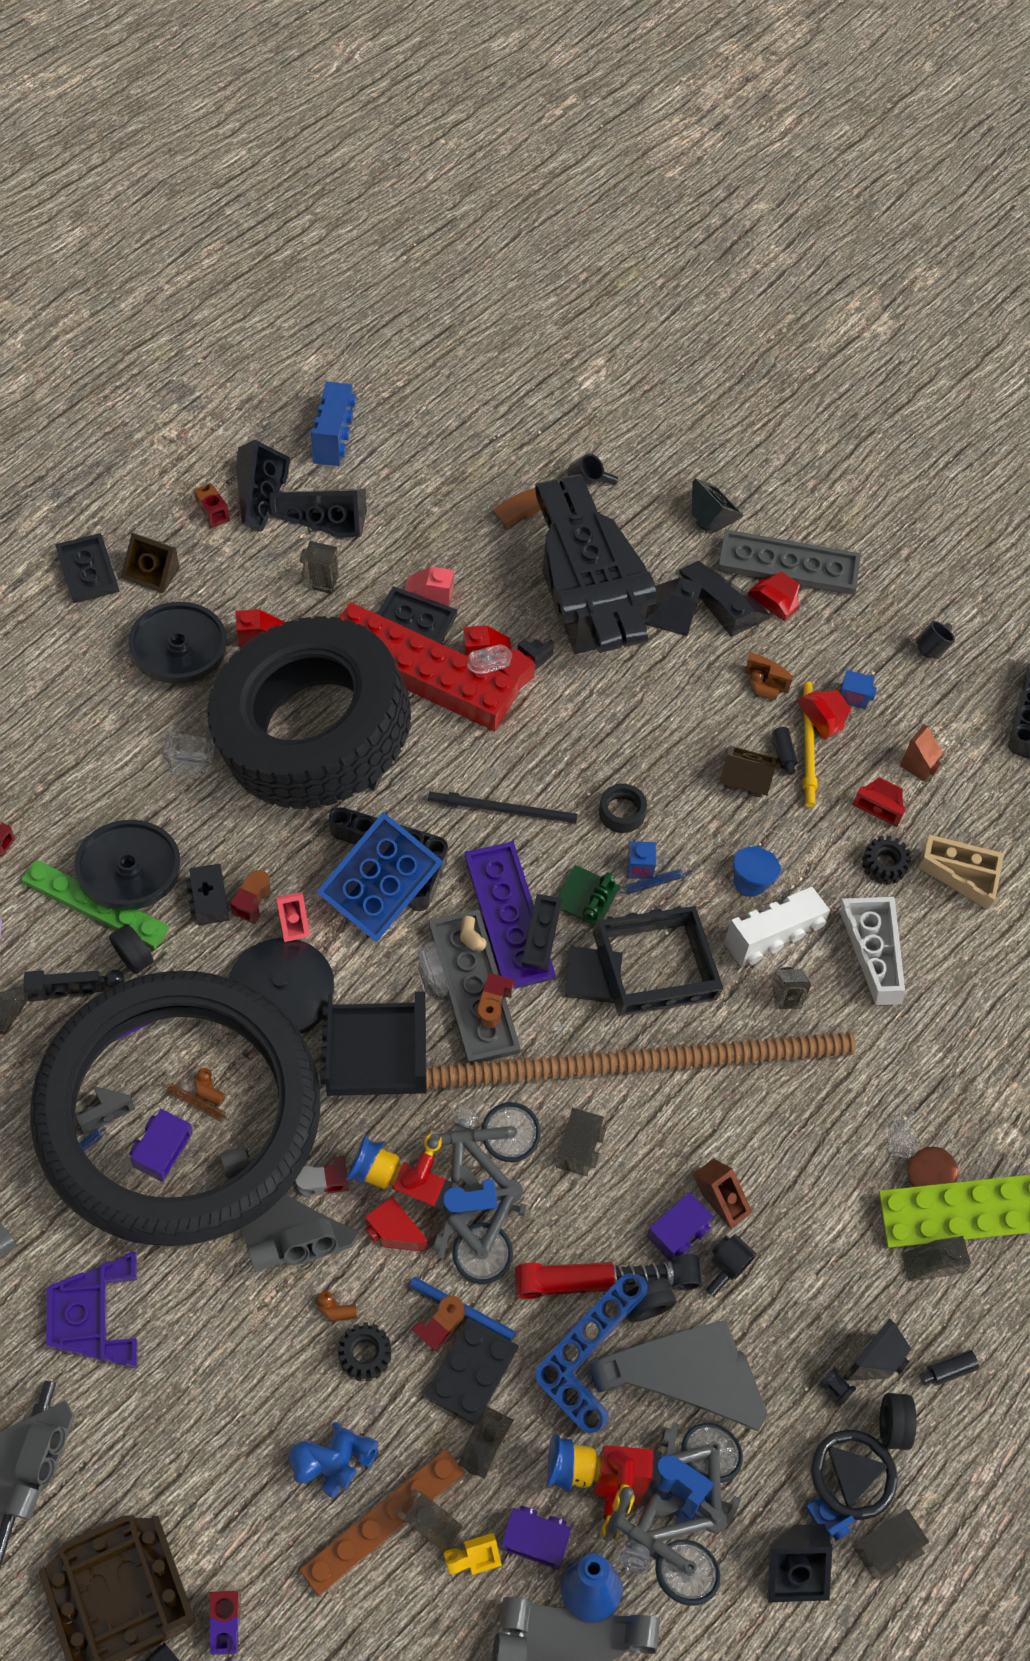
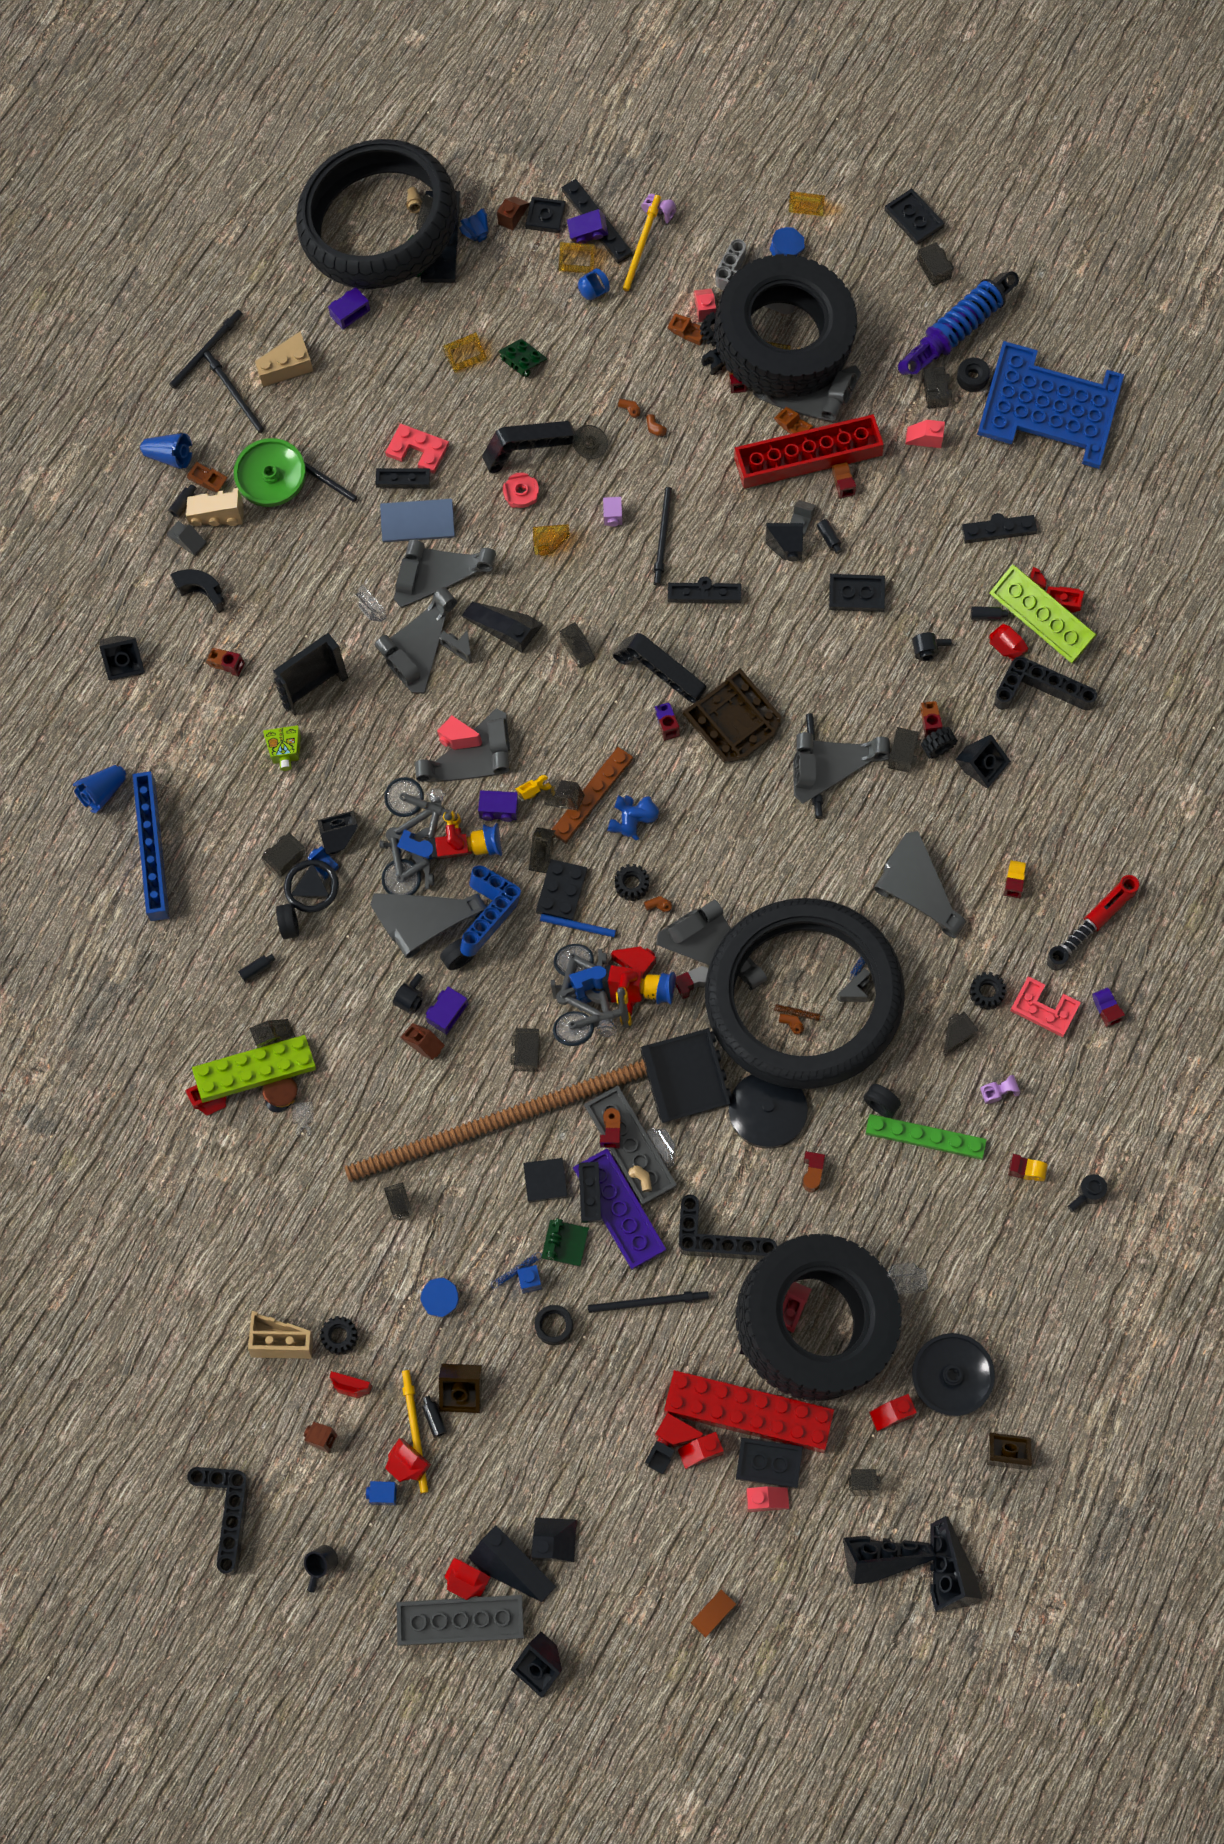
camera: 175 degrees right, 10 degrees up
(60, 985) = (937, 1061): black plate -> none
(79, 1314) = (817, 858): dark purple wing -> none
(87, 568) = (1060, 1435): black plate -> none
(127, 865) = (912, 1166): black dish -> none
(160, 1145) = (798, 946): dark purple piece -> none
(209, 881) = (846, 1174): black brick -> none
(212, 505) = (984, 1534): dark red leg -> none
(292, 916) = (776, 1157): coral slope -> none
(332, 423) = (909, 1661): blue wedge -> none
(379, 877) = (723, 1202): blue slope -> none
(443, 1322) = (587, 908): leg -> none
(489, 659) = (691, 1418): clear plate -> none
(536, 1280) = (533, 952): red piece -> none
(591, 469) = (660, 1666): black piece -> none
(591, 1588) = (460, 789): blue cone -> none
(592, 570) = (629, 1528): black piece -> none
(666, 997) = (486, 1169): black window -> none
(759, 686) = (464, 1477): dark orange arm -> none
(774, 673) = (453, 1487): dark orange slope -> none
(775, 926) = (416, 1250): white wedge -> none
(836, 1387) = (328, 936): black bush -> none
(876, 942) = (340, 1260): white wedge -> none
(882, 1356) = (304, 958): black slope -> none

